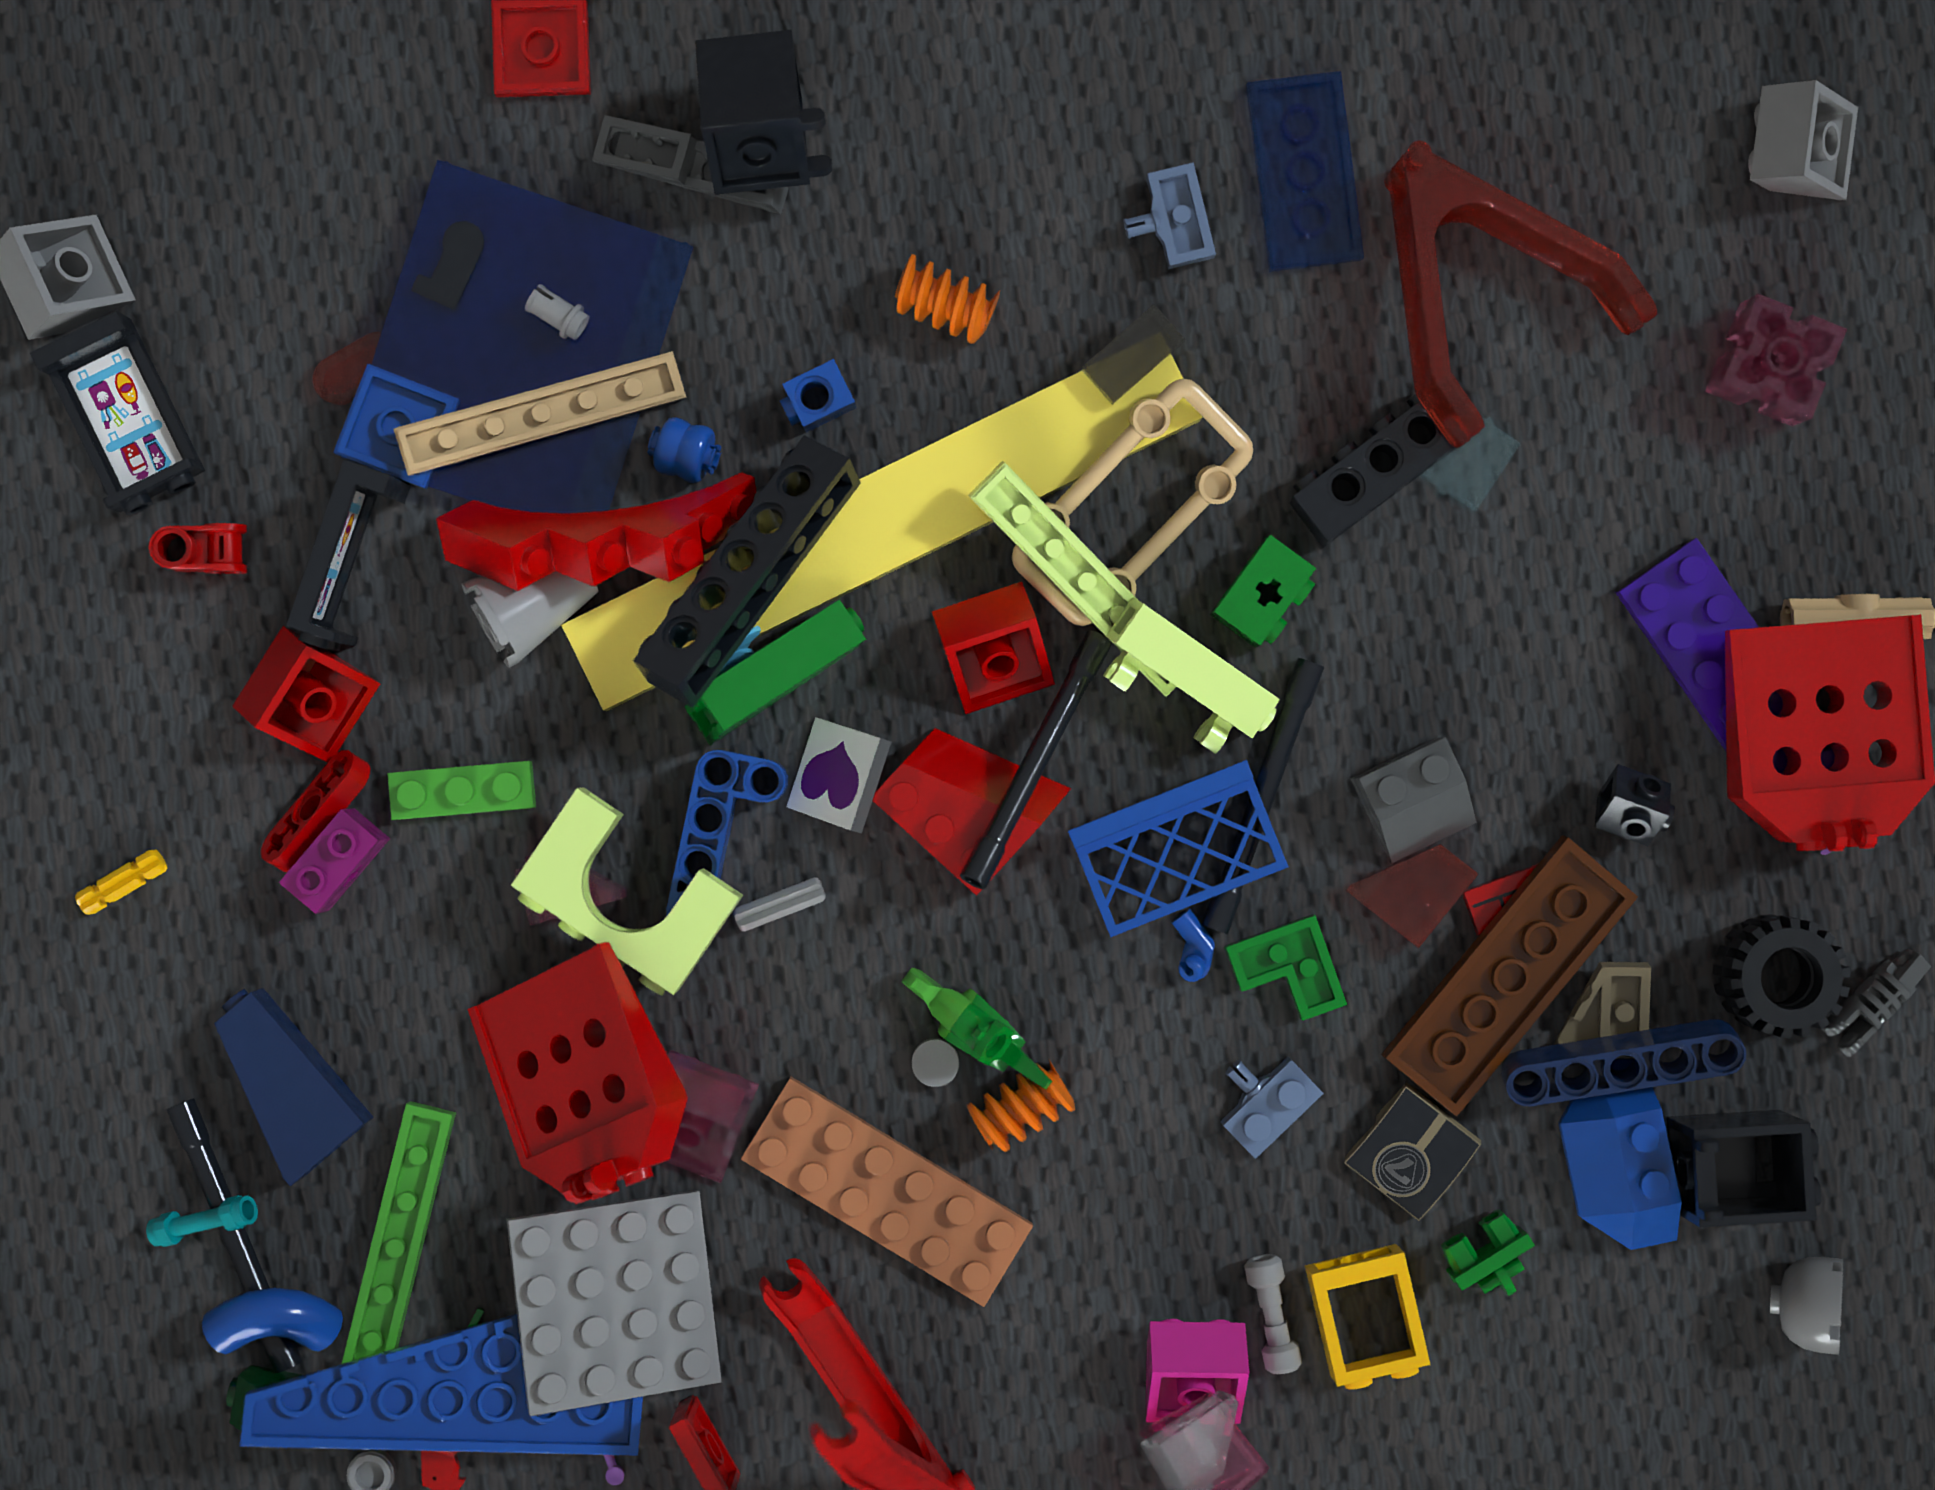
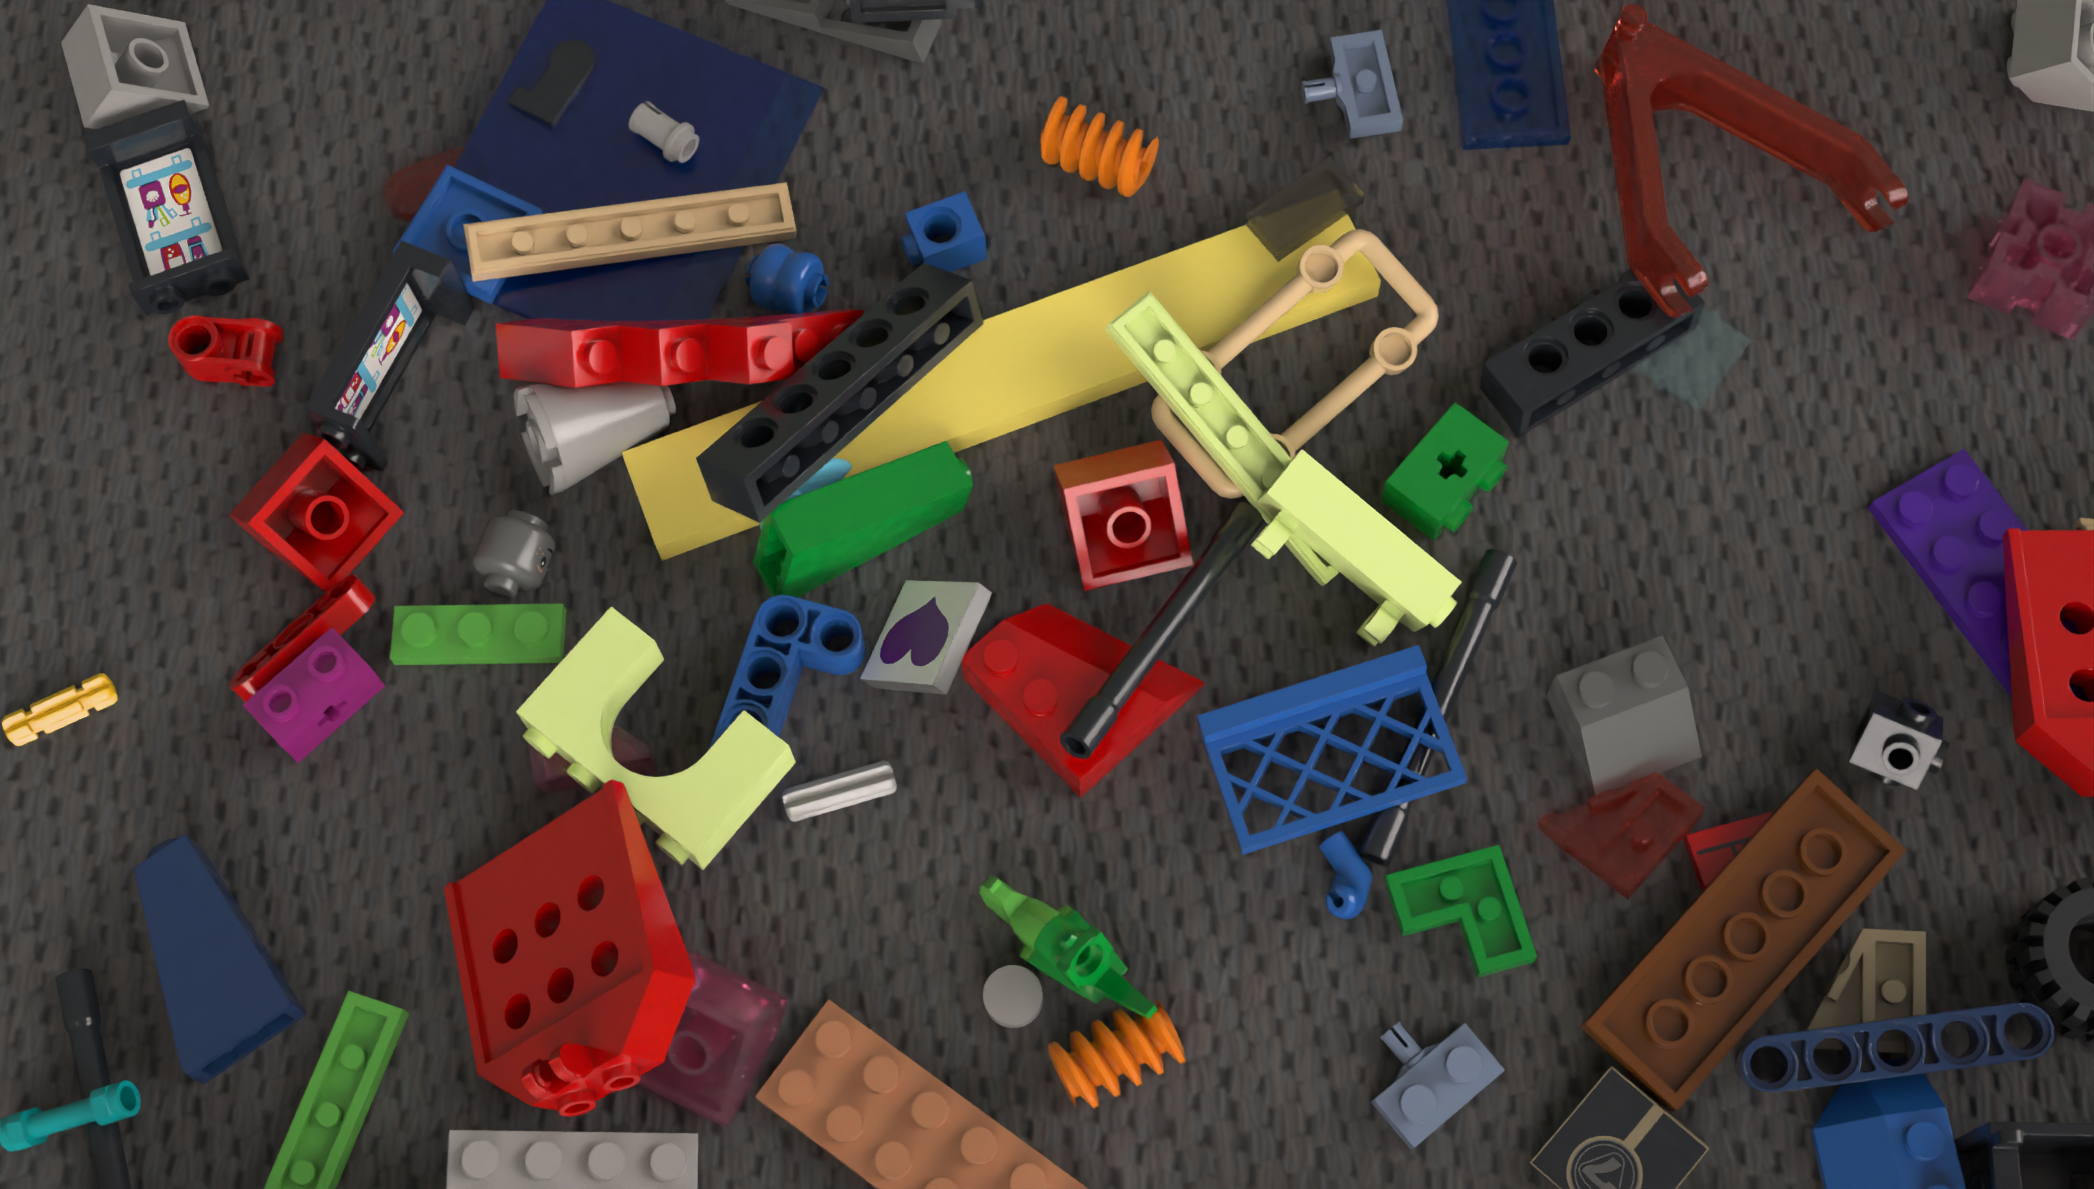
camera: 10 degrees right, 20 degrees down
(482, 719) = (514, 553): none -> dark grey head

